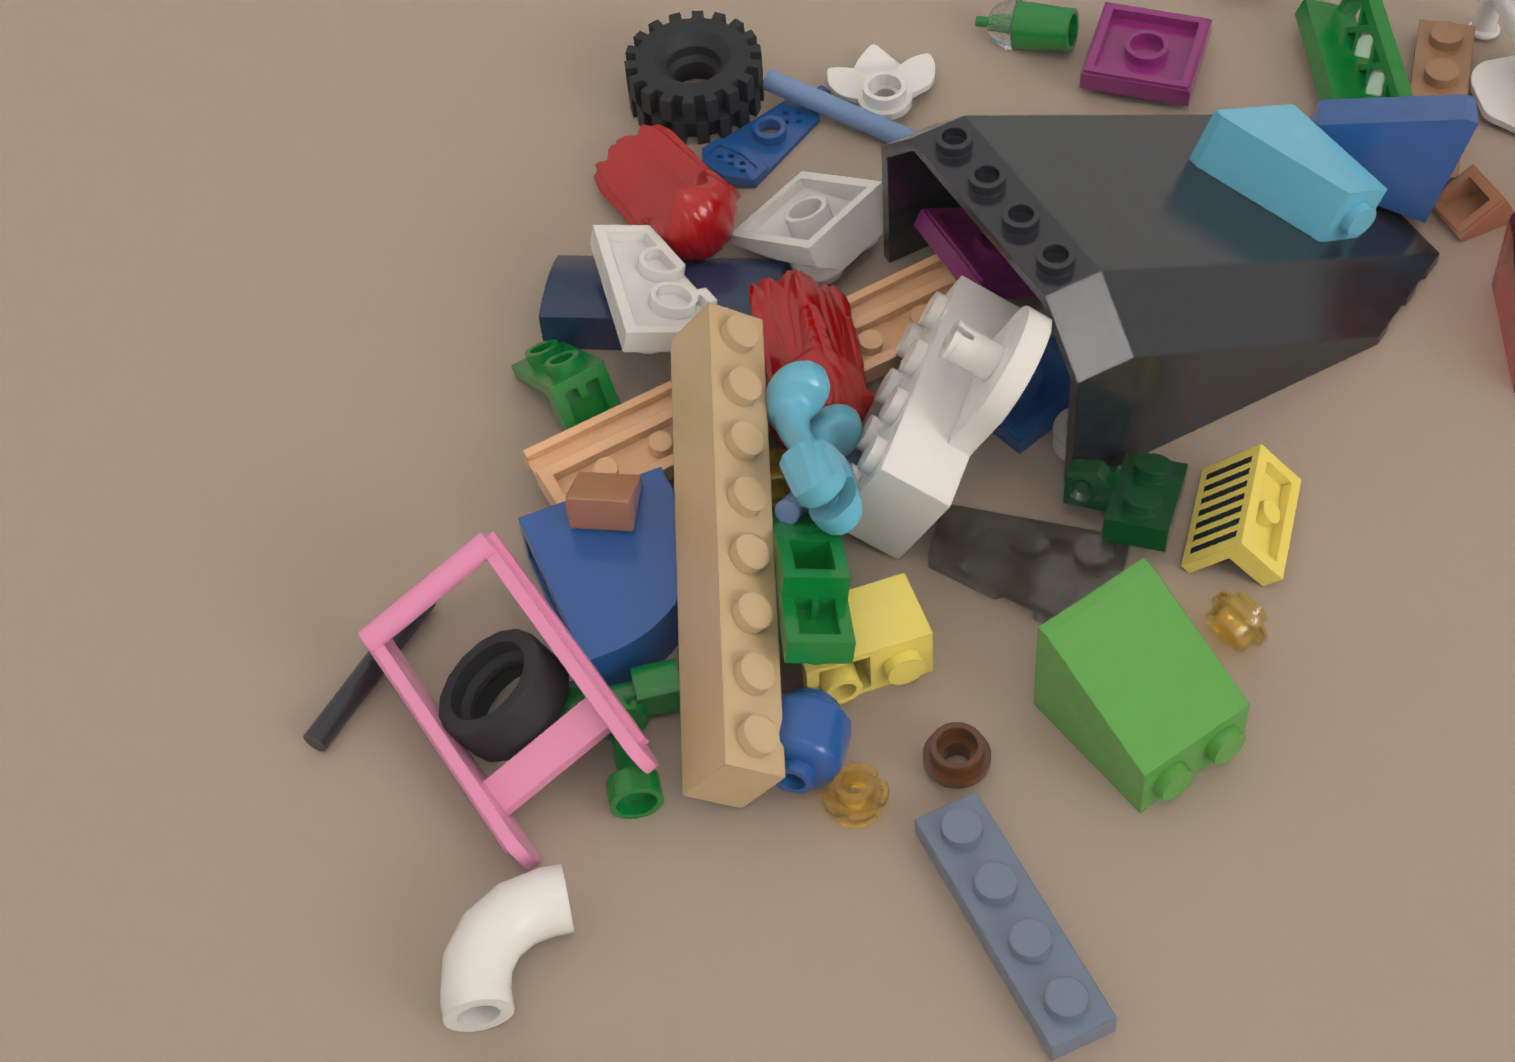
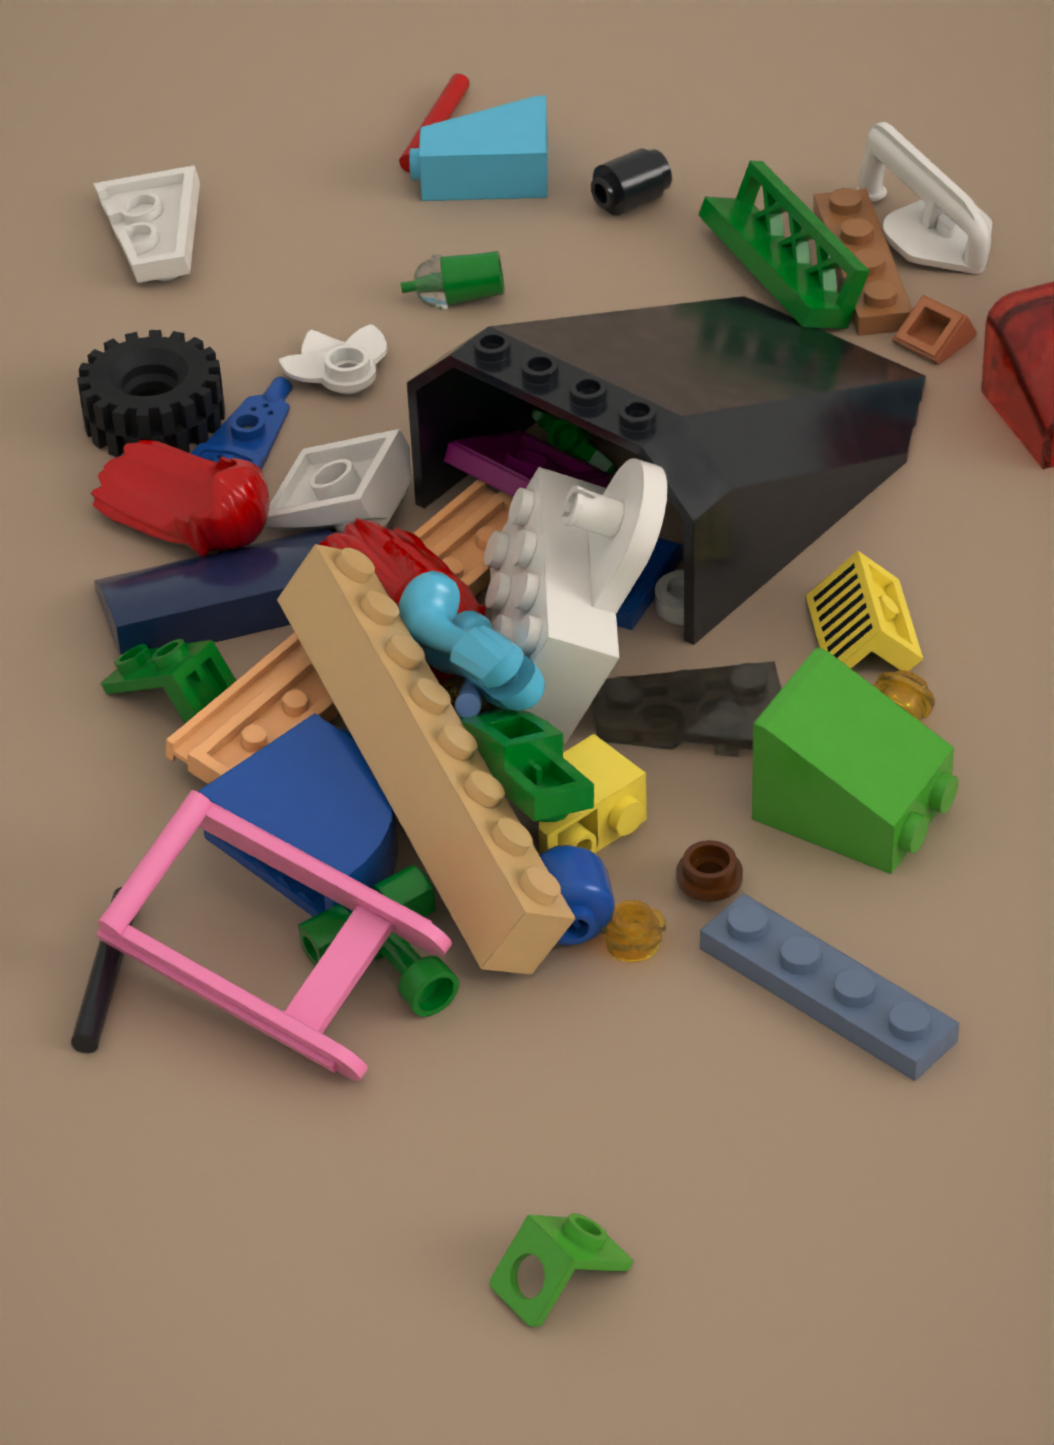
camera: 25 degrees left, 10 degrees down
(480, 679) = (244, 913): black tyre -> none
(491, 941) = (363, 1138): white cylinder -> none
(603, 501) = (281, 751): nougat slope -> none
(644, 286) = (217, 570): white wing -> none
(834, 107) = (310, 391): medium blue bar -> none
(1136, 499) = (764, 623): dark green hinge -> none
(1146, 54) = (578, 276): magenta plate -> none
(1290, 170) = (779, 324): medium azure slope -> none
(1403, 143) = (847, 294): blue slope -> none

